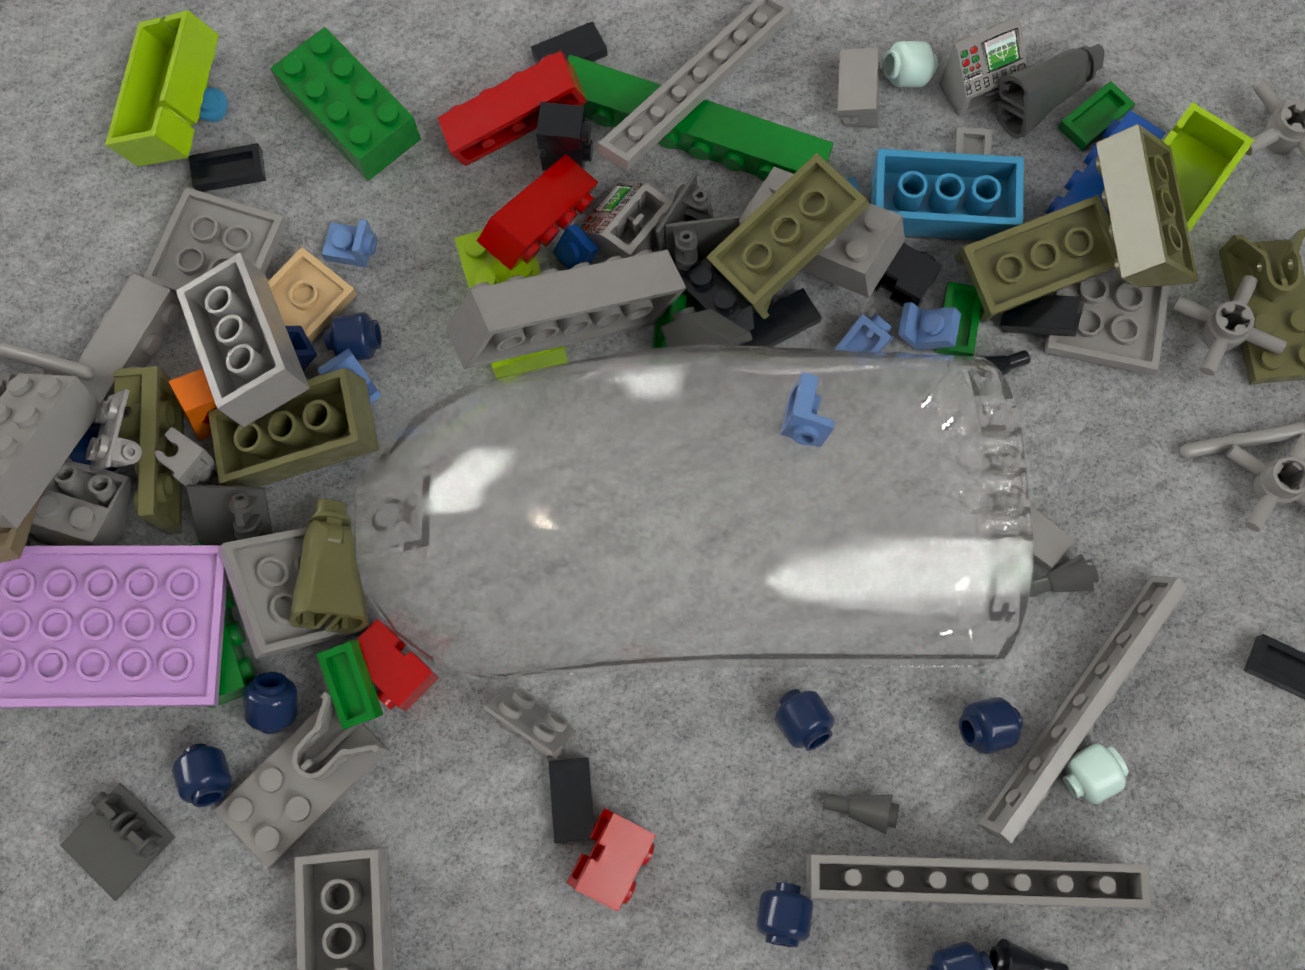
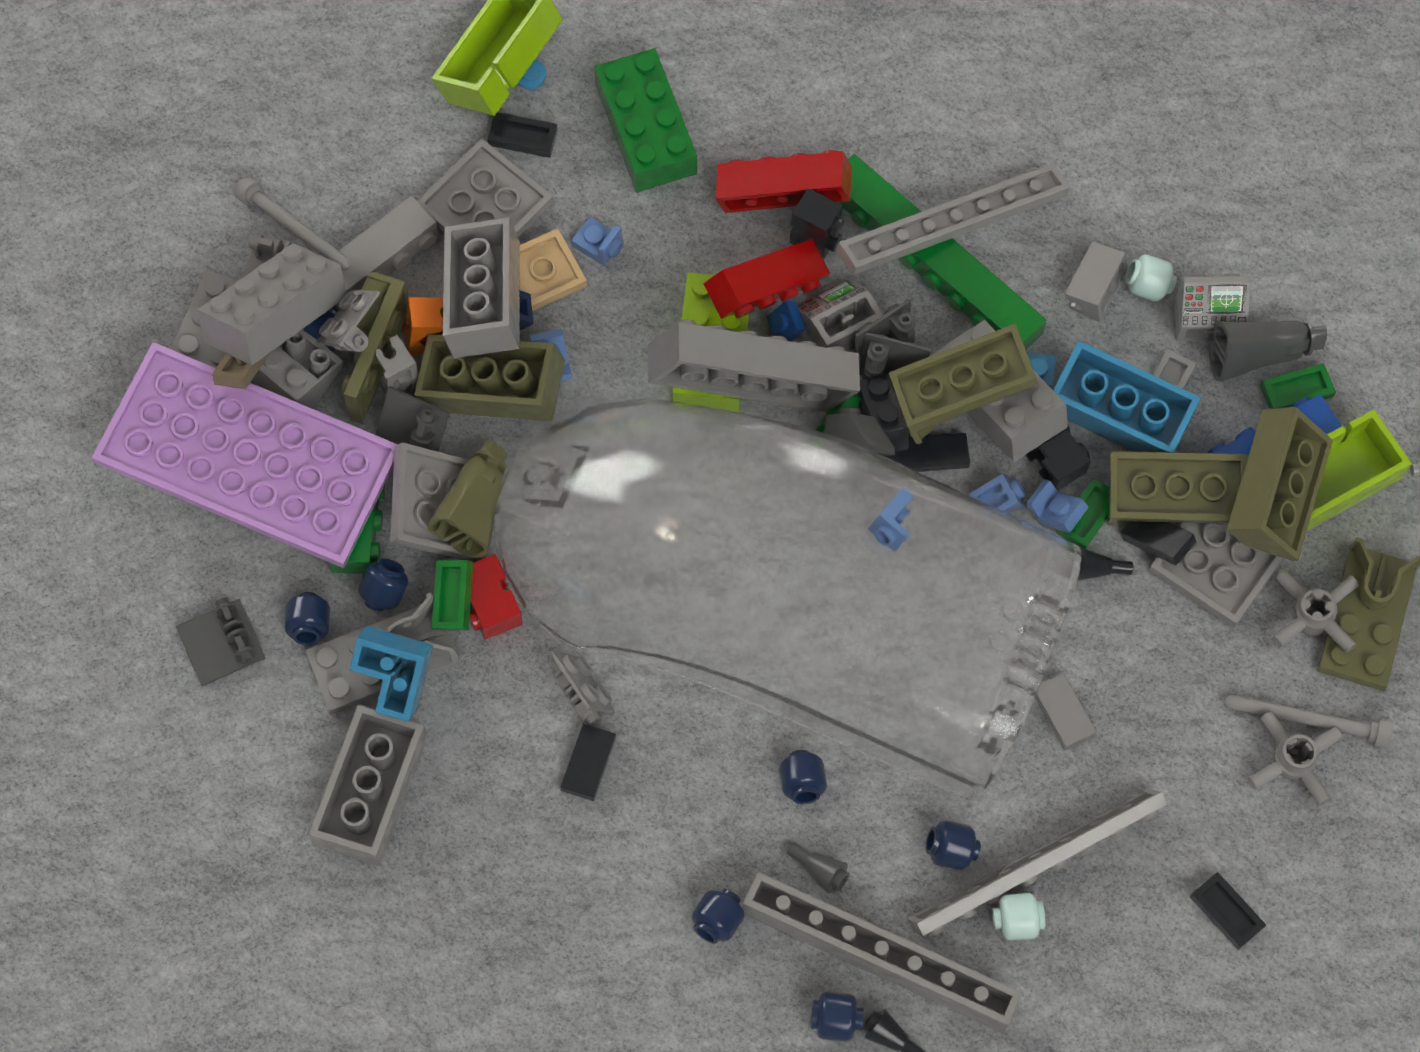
camera: 20 degrees right, 5 degrees down
(319, 795) = (399, 663): none -> dark azure brick
(354, 332) = (571, 317): dark blue head -> none
(580, 42) = (868, 145): black tile -> none
(613, 861) = (594, 823): brick -> none
(1070, 577) = (1078, 759): dark grey cone -> none

